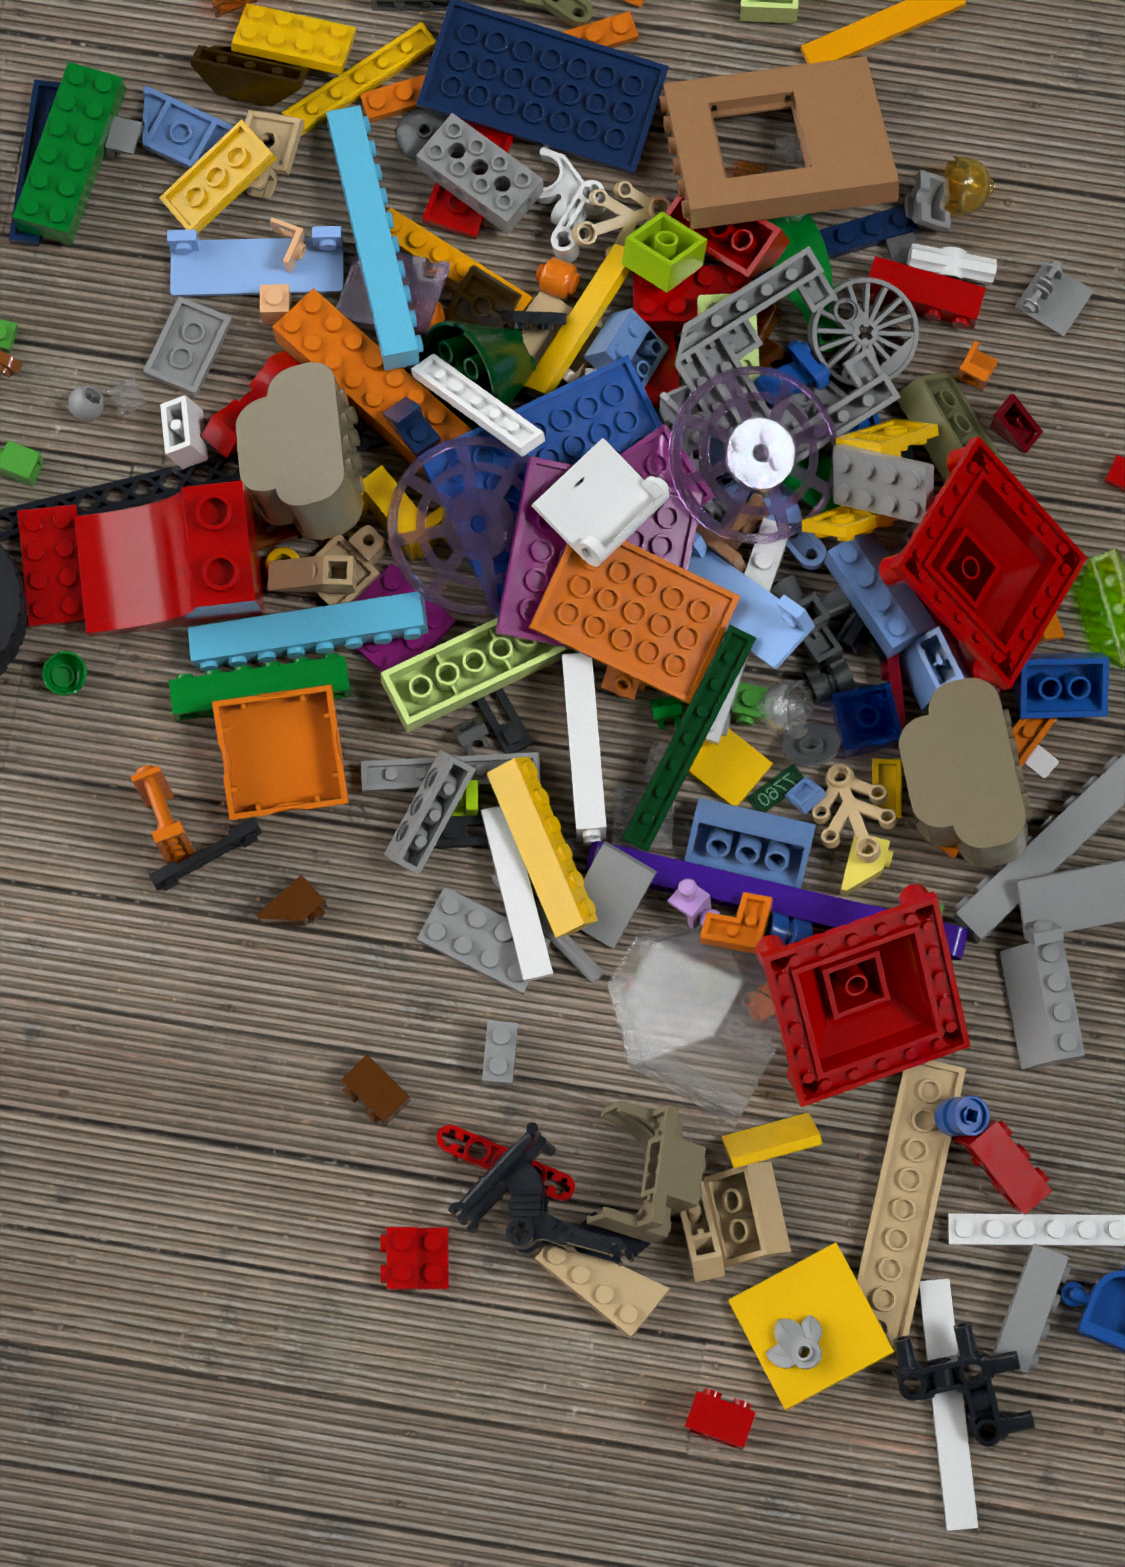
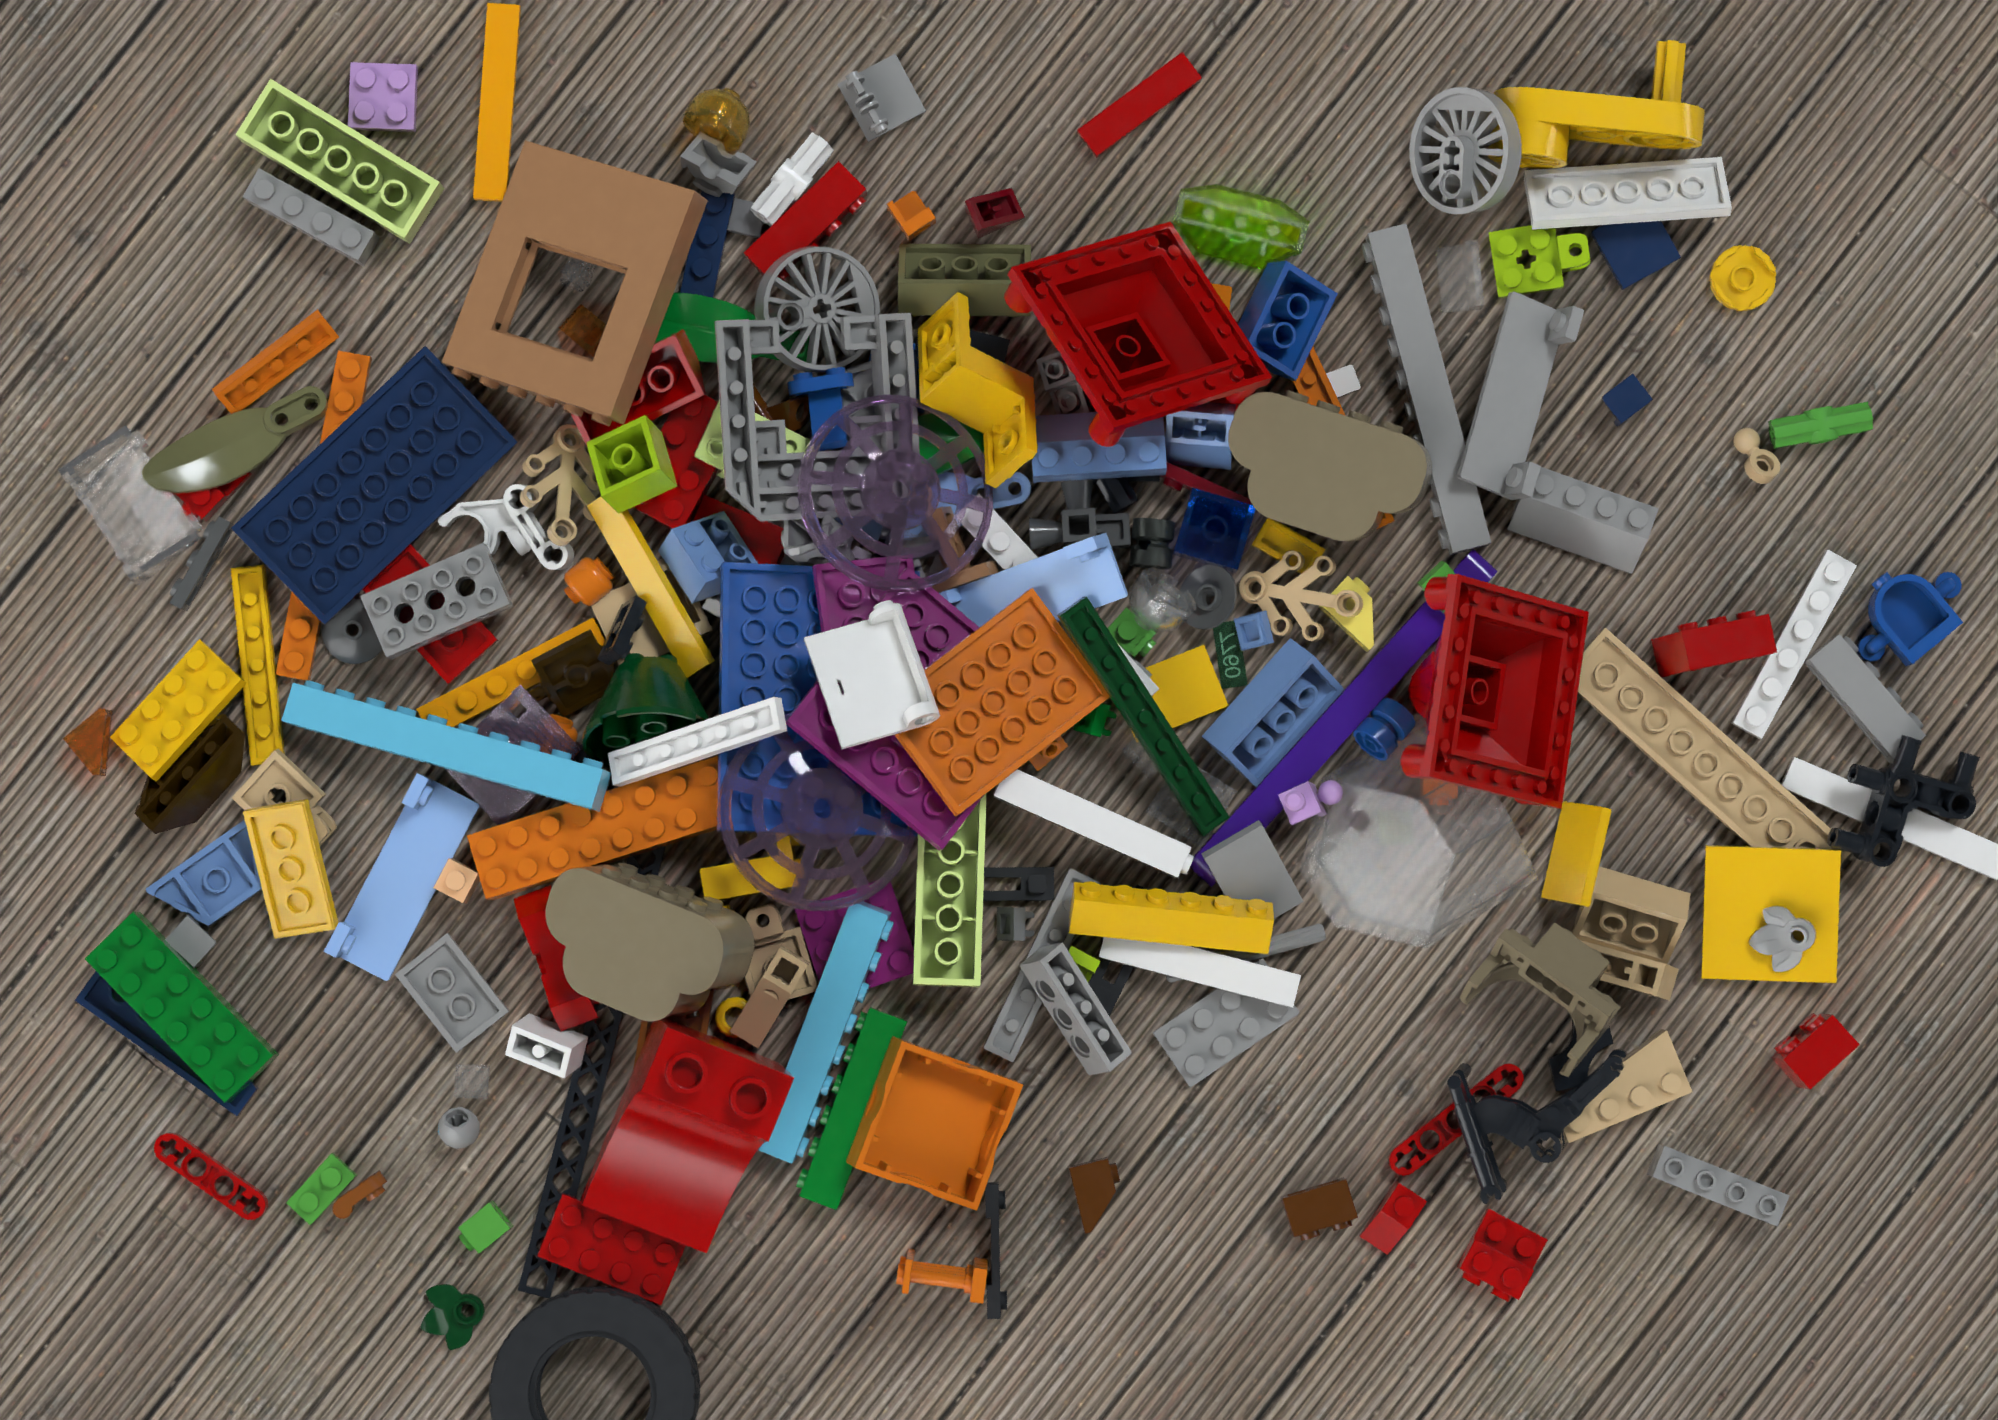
camera: 65 degrees left, 10 degrees up
(64, 673) = (732, 1295): green hair -> none
(297, 246) = (411, 827): light nougat bracket -> none
(399, 1153) = (1393, 1217): none -> red slope
(411, 426) = (676, 817): dark blue slope -> none
(500, 1054) = (1349, 1068): light grey brick -> none
(567, 1402) = (1718, 1185): none -> light grey brick
(741, 931) = (1363, 773): orange plate -> none
(882, 483) = (999, 384): light grey plate -> none
(962, 1116) = (1654, 659): blue wheel -> none

